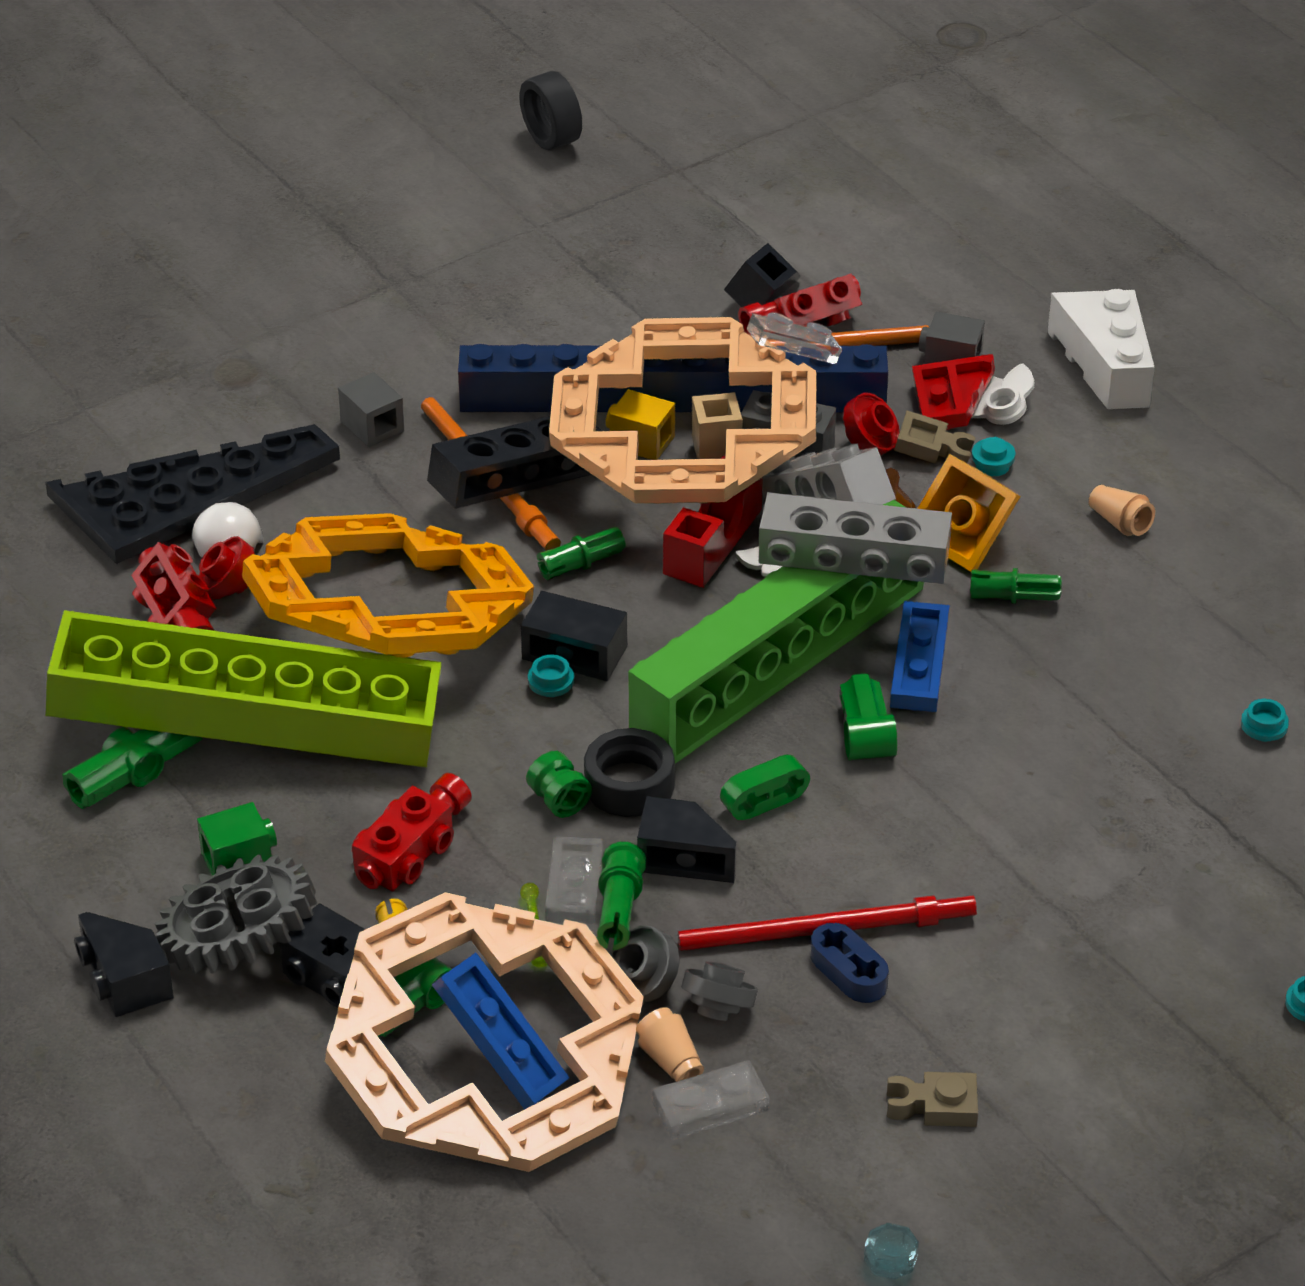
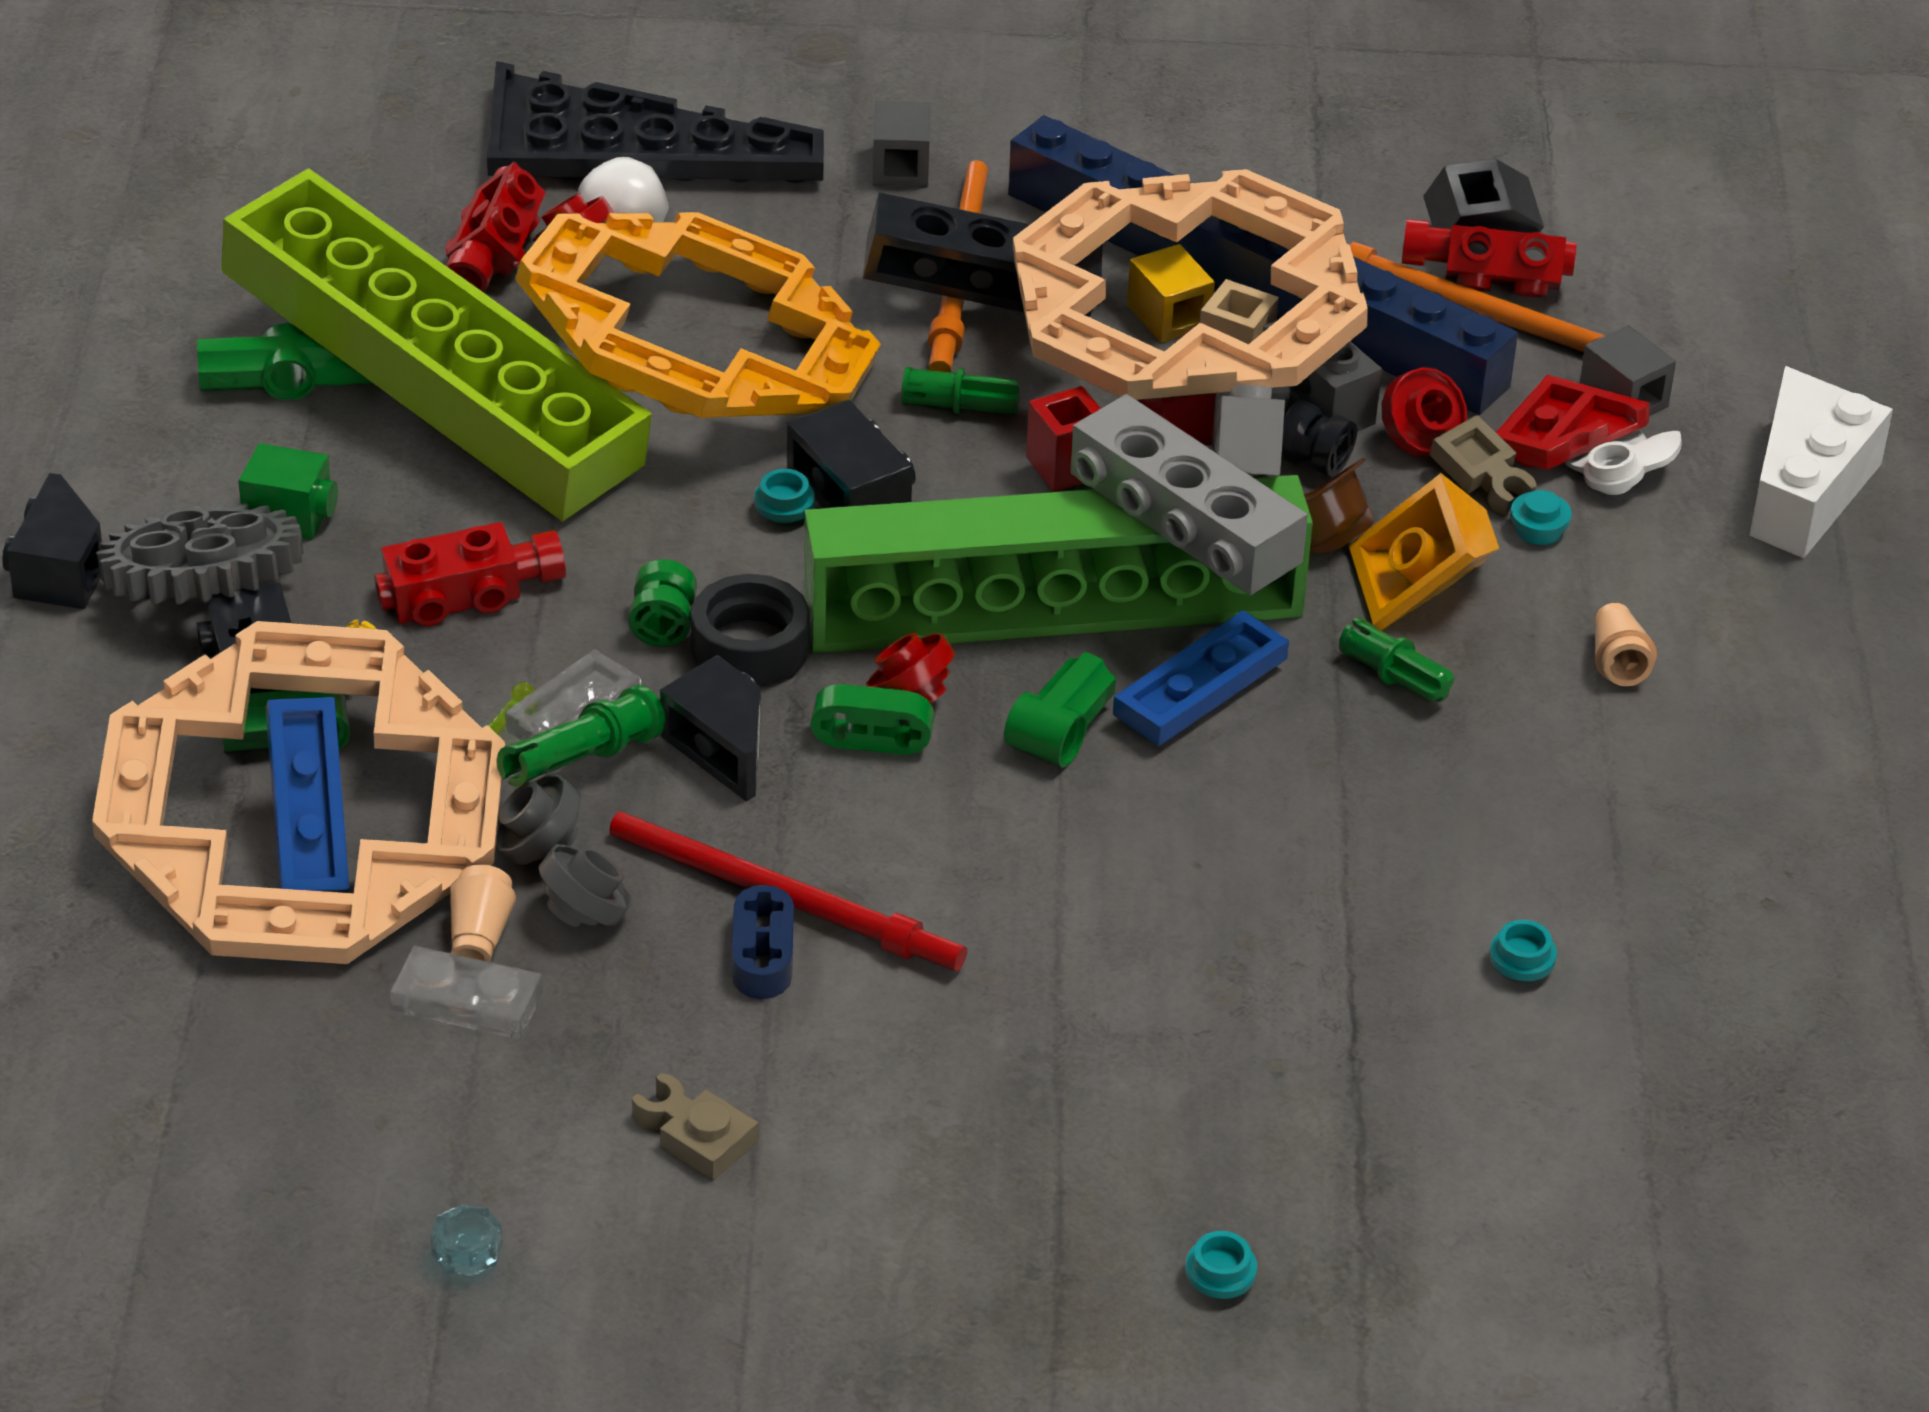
camera: 35 degrees right, 0 degrees up
(757, 739) = (914, 665): none -> red plate
(782, 334) = (1373, 255): clear plate -> none

